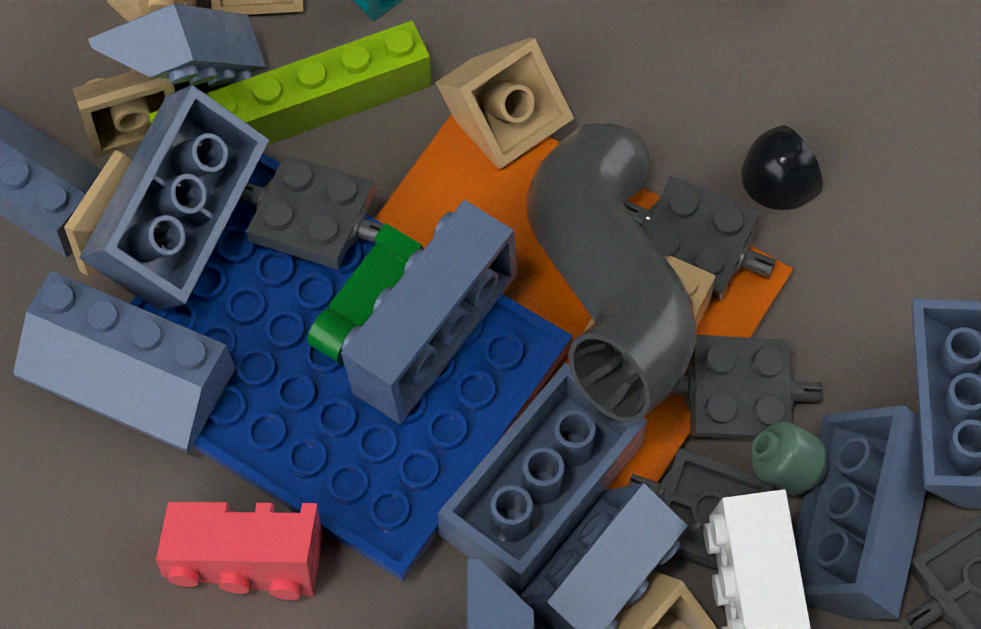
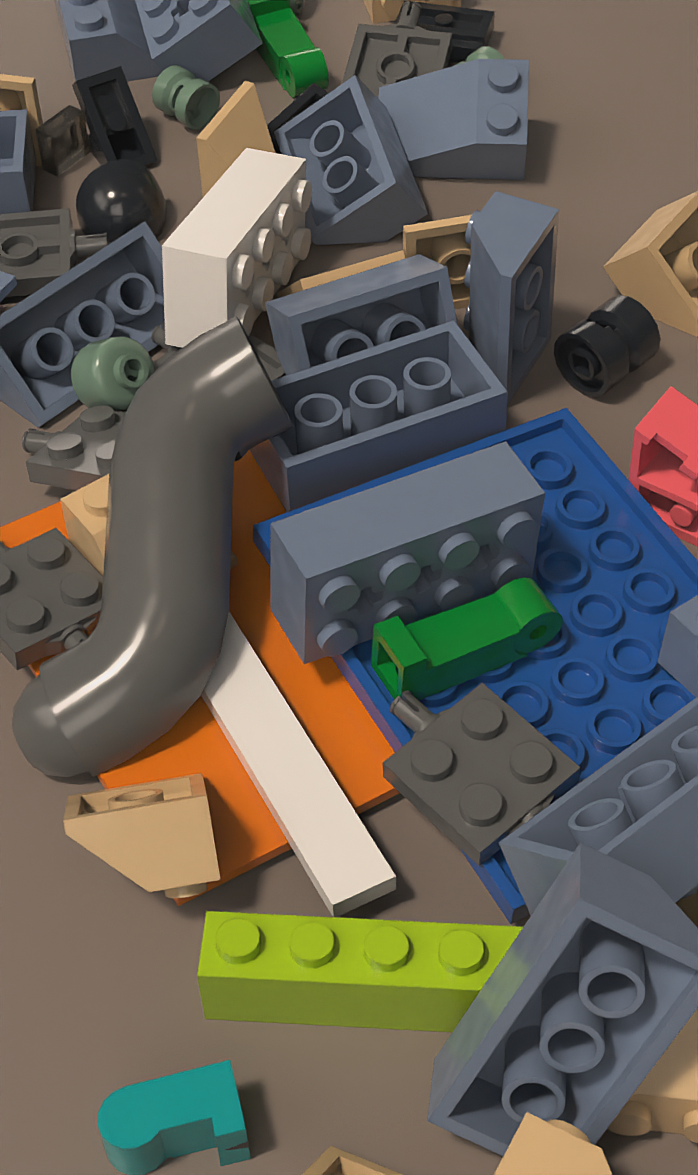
camera: 150 degrees left, 15 degrees down
(442, 186) = (294, 779): none -> white tile

